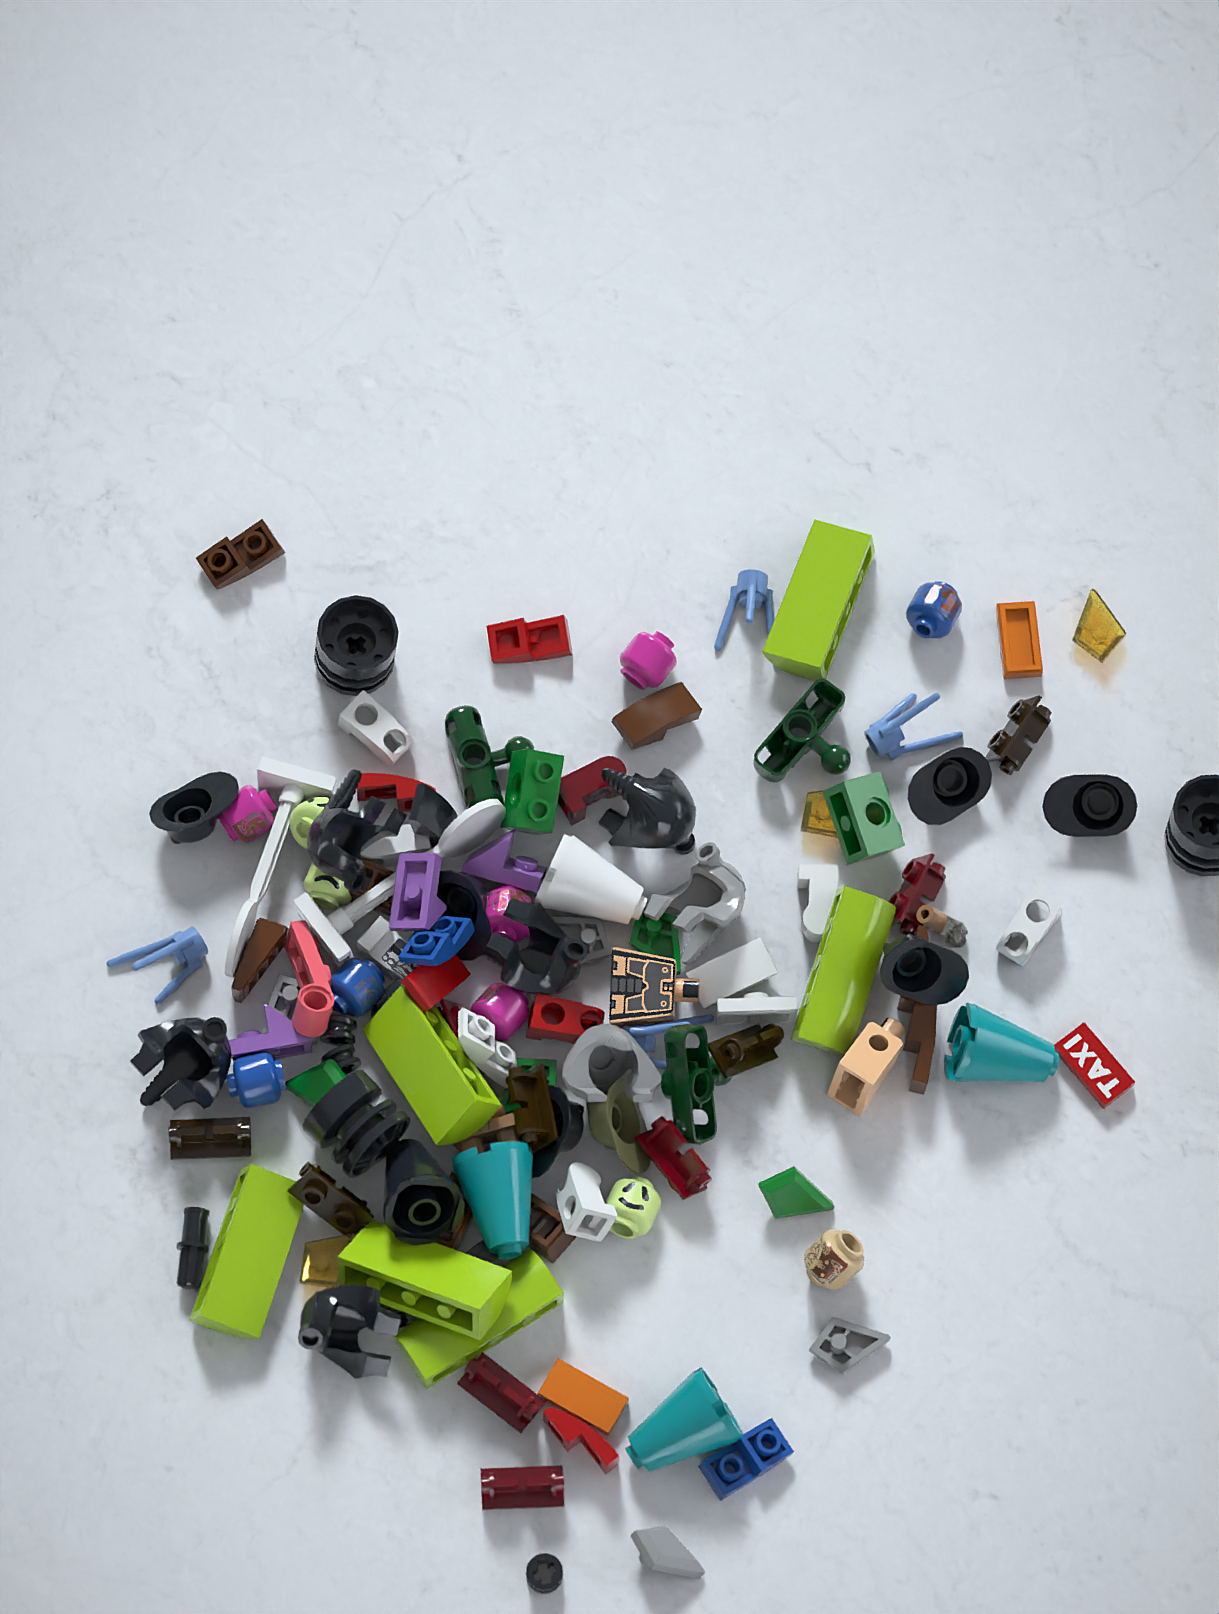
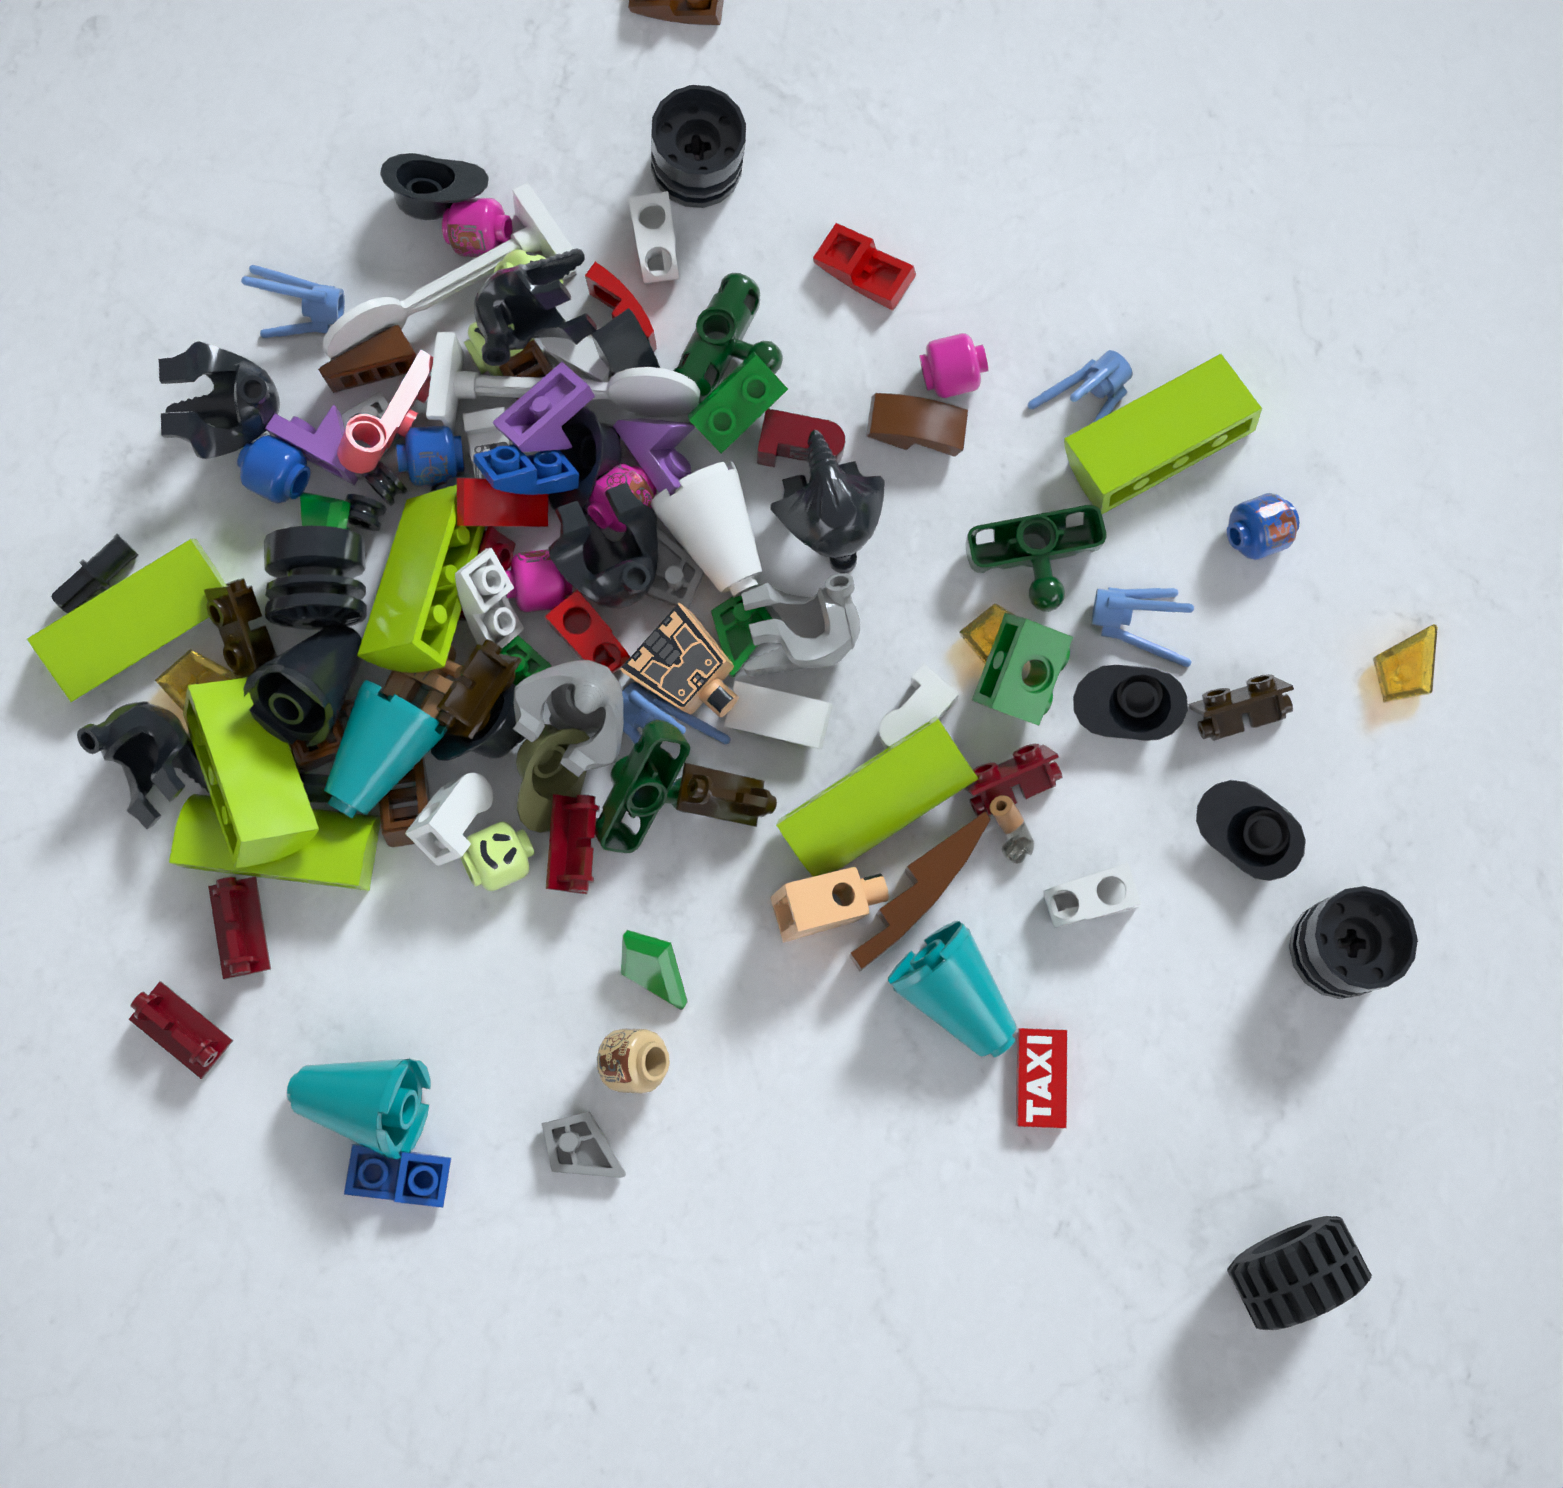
camera: 45 degrees right, 10 degrees up
(210, 1138) = (195, 488): dark brown hinge -> none
(556, 1578) = (115, 1132): black bush -> none
(572, 1431) = (262, 1013): red slope -> none
(583, 1397) = (306, 992): orange tile -> none
(665, 1553) = (246, 1200): light grey piece -> none
(756, 1009) = (769, 765): white plate -> none
(923, 970) = (944, 859): black piece -> none
(1019, 640) = (1321, 618): orange tile -> none

